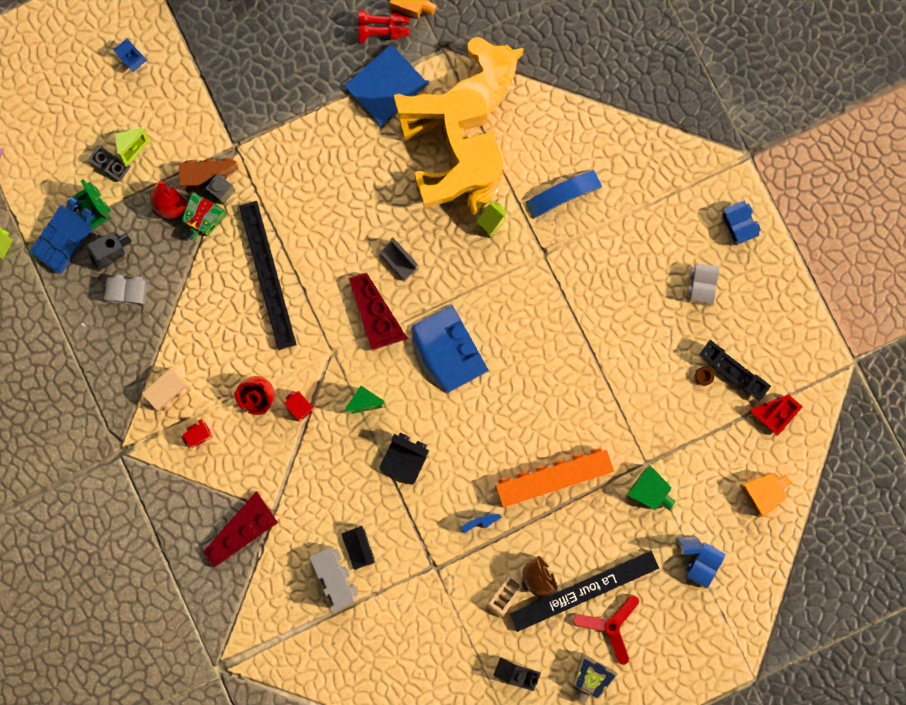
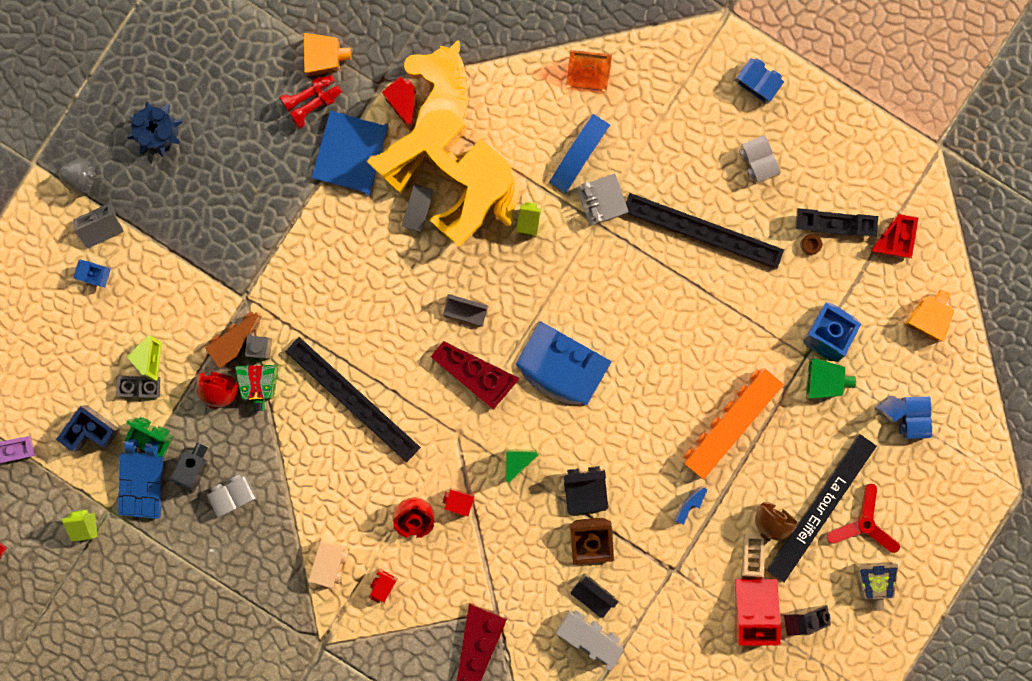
camera: 30 degrees left, 5 degrees up
(48, 166) = (84, 425): none -> dark blue brick
(157, 23) = (97, 225): none -> dark grey panel
(383, 502) = (591, 541): none -> reddish brown slope
(411, 158) = (417, 207): none -> dark grey slope
(452, 64) = (402, 99): none -> red slope
(480, 641) = (757, 612): none -> slope
(559, 239) = (602, 199): none -> light grey hinge
(610, 133) = (588, 70): none -> clear orange slope
(624, 313) = (704, 231): none -> black tile
(677, 455) = (832, 332): none -> blue slope

